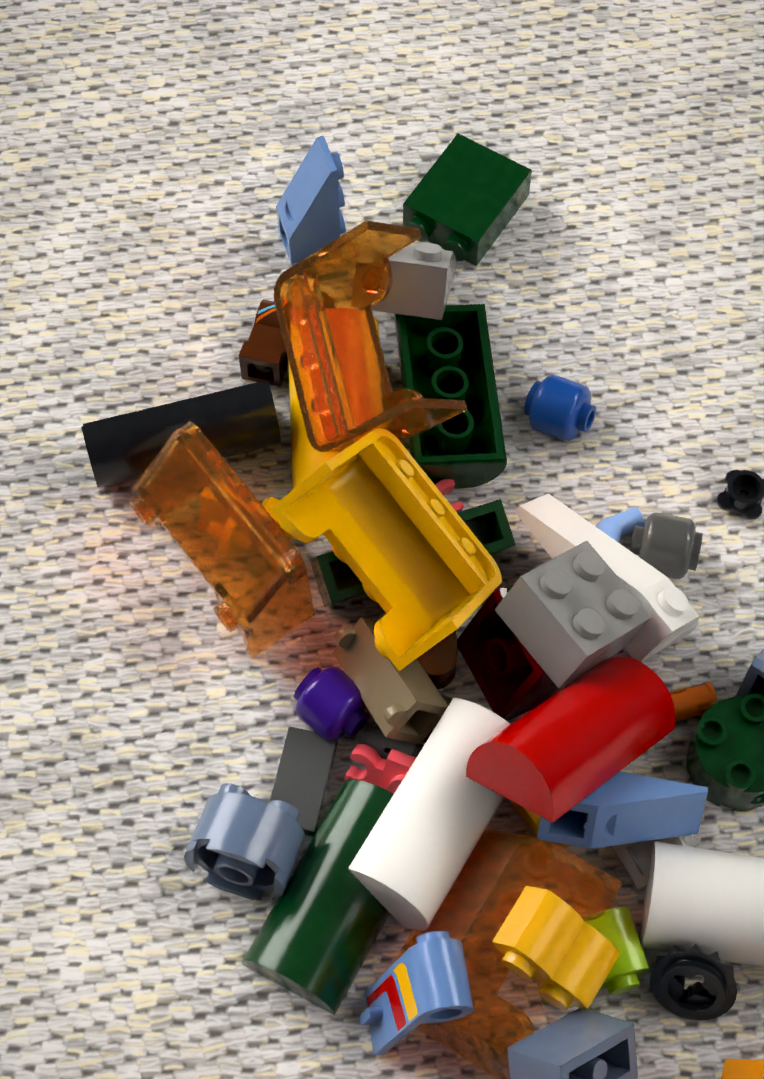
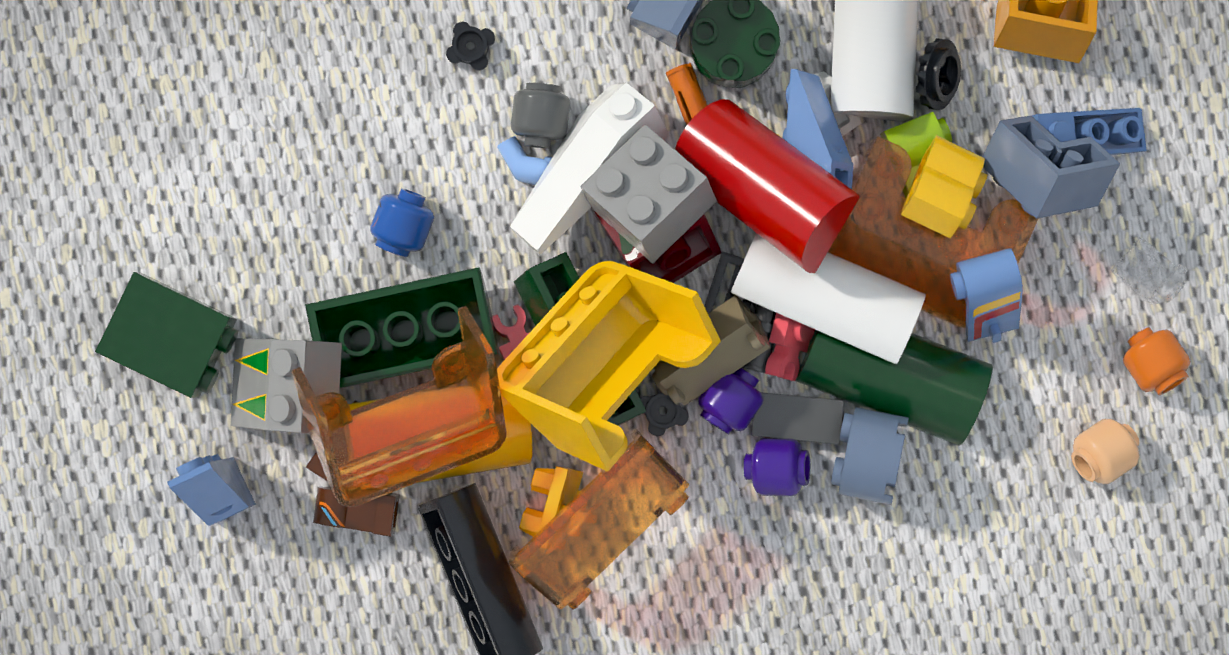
camera: 90 degrees left, 25 degrees up
(248, 747) = (777, 467): none -> dark purple head
(318, 632) = (659, 423): none -> black plate

